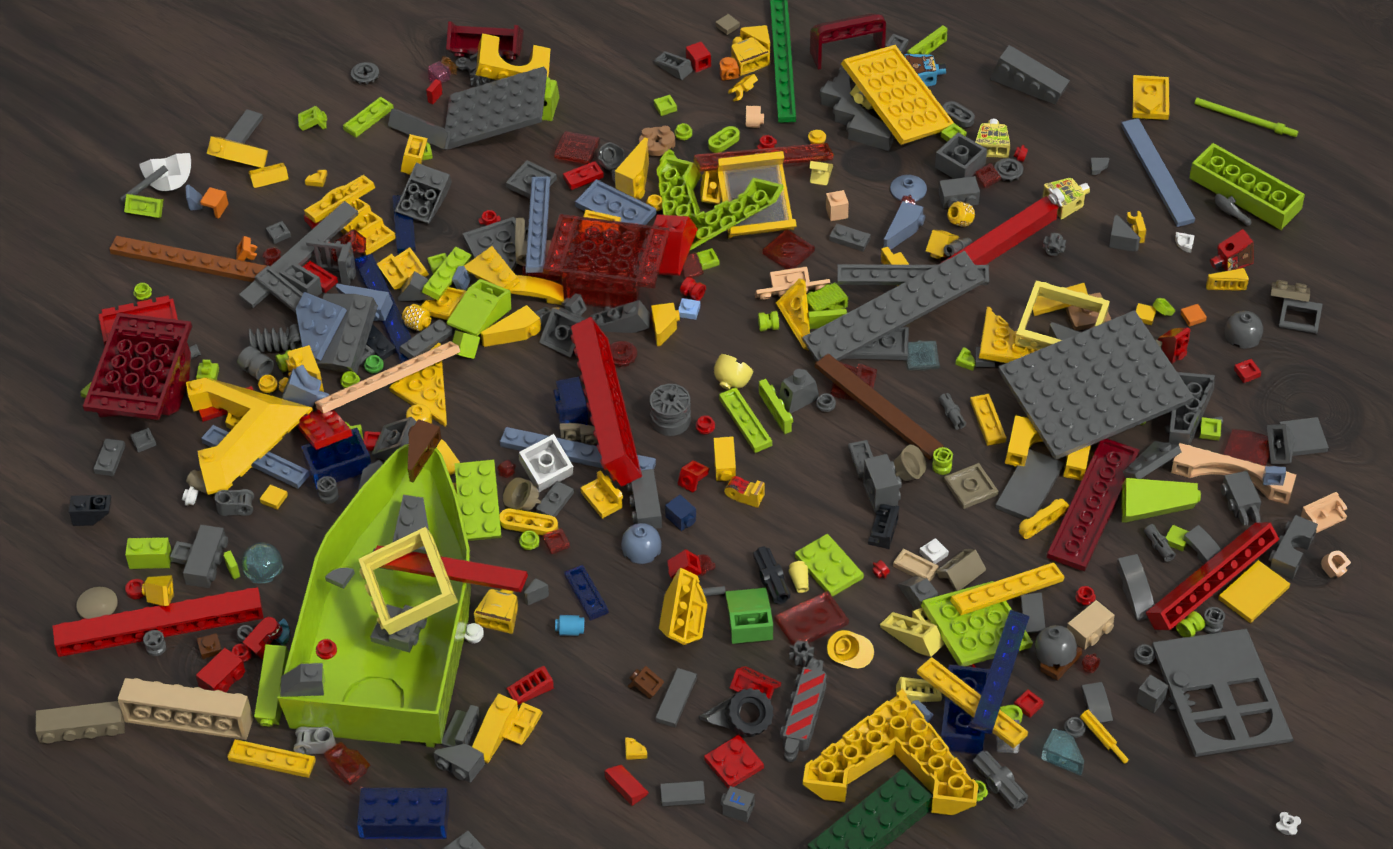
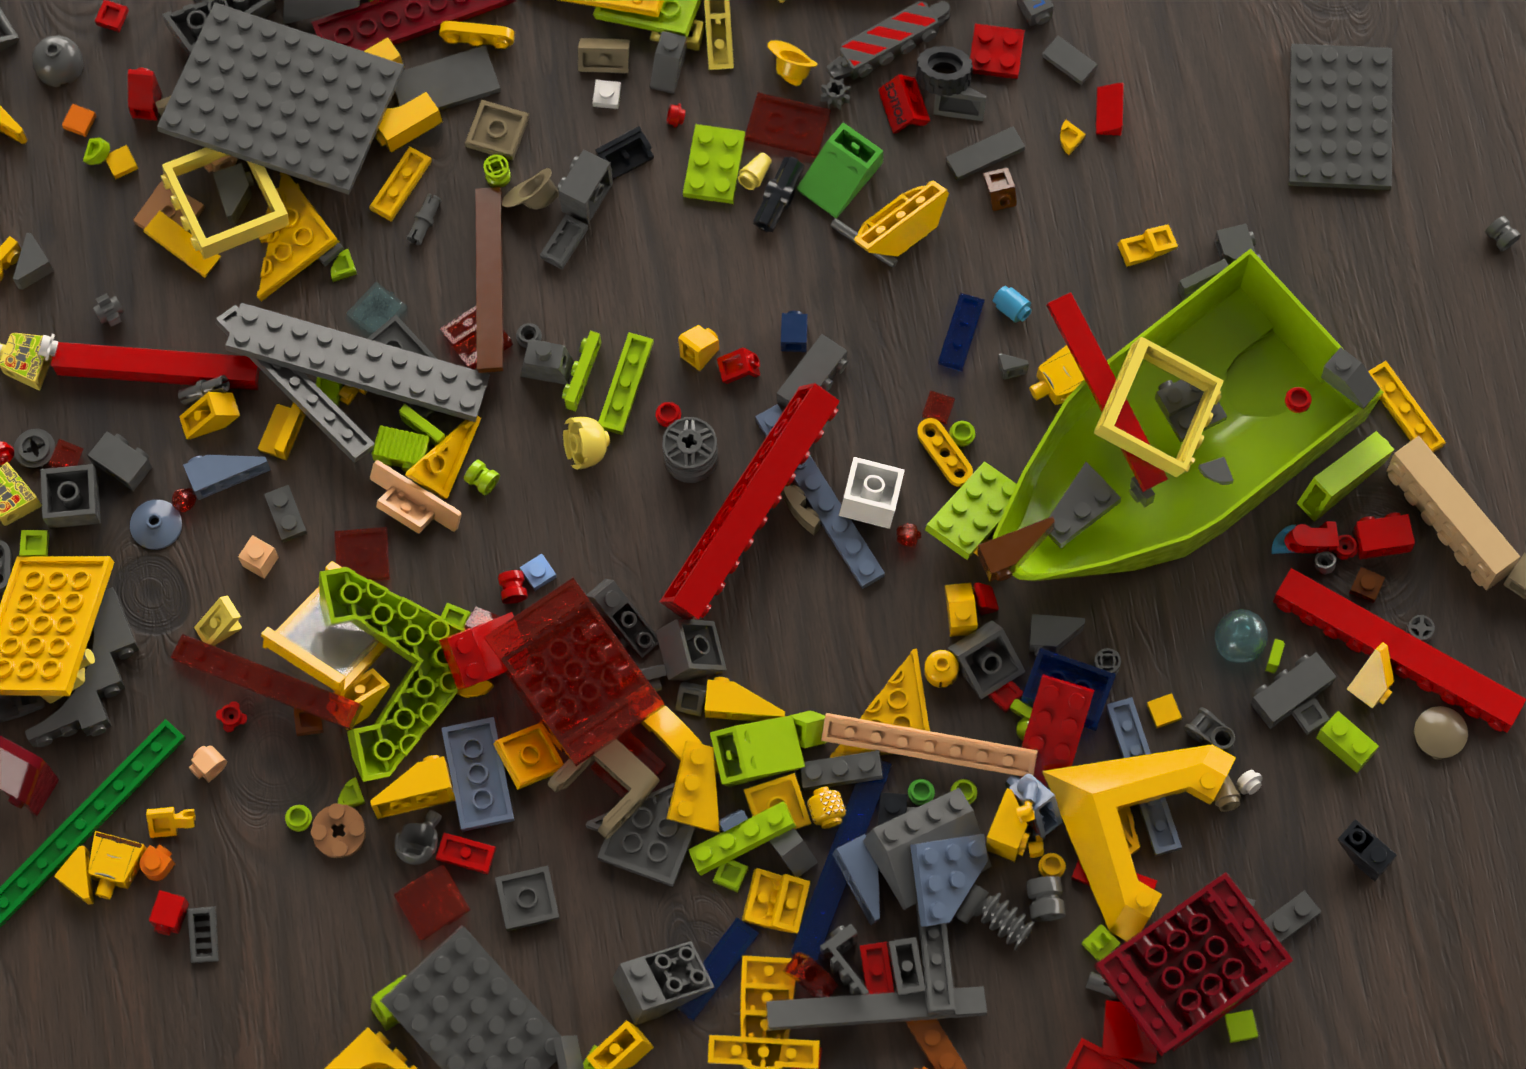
camera: 135 degrees left, 20 degrees up
(134, 588) = (1388, 718): red tile -> none
(271, 256) = (906, 1048): clear red plate -> none
(281, 361) = (1010, 876): lime wheel -> none
(346, 763) = (1344, 328): clear red slope -> none
(403, 813) = (1334, 241): clear blue brick -> none
(489, 217) = (615, 882): red plate -> none
(494, 726) = (1177, 258): yellow slope -> none
(521, 495) = (927, 484): dark tan piece -> none
(535, 676) = (1101, 265): red slope -> none
(538, 224) = (593, 800): sand blue tile -> none
(555, 499) = (901, 455): dark grey plate -> none
(570, 401) = (782, 538): clear blue brick -> none
(602, 495) = (850, 420): yellow bracket -> none
(623, 347) = (651, 568): clear red gear -> none
(641, 543) = (862, 335): sand blue cylinder -> none
(655, 201) = (431, 743): yellow plate -> none
(664, 321) = (585, 568): yellow slope -> none
(665, 105) = (274, 879): lime tile -> none
(684, 560) = (852, 265): red brick -> none
(706, 560) = (822, 258): clear red plate -> none
(723, 139) = (270, 763): lime plate -> none
(727, 24) = (80, 939): dark tan tile -> none
(745, 491) = (709, 302): yellow leg -> none
(816, 137) = (171, 676): yellow plate -> none
(915, 565) = (638, 95): tan tile -> none
(961, 214) = (153, 428): yellow head -> none

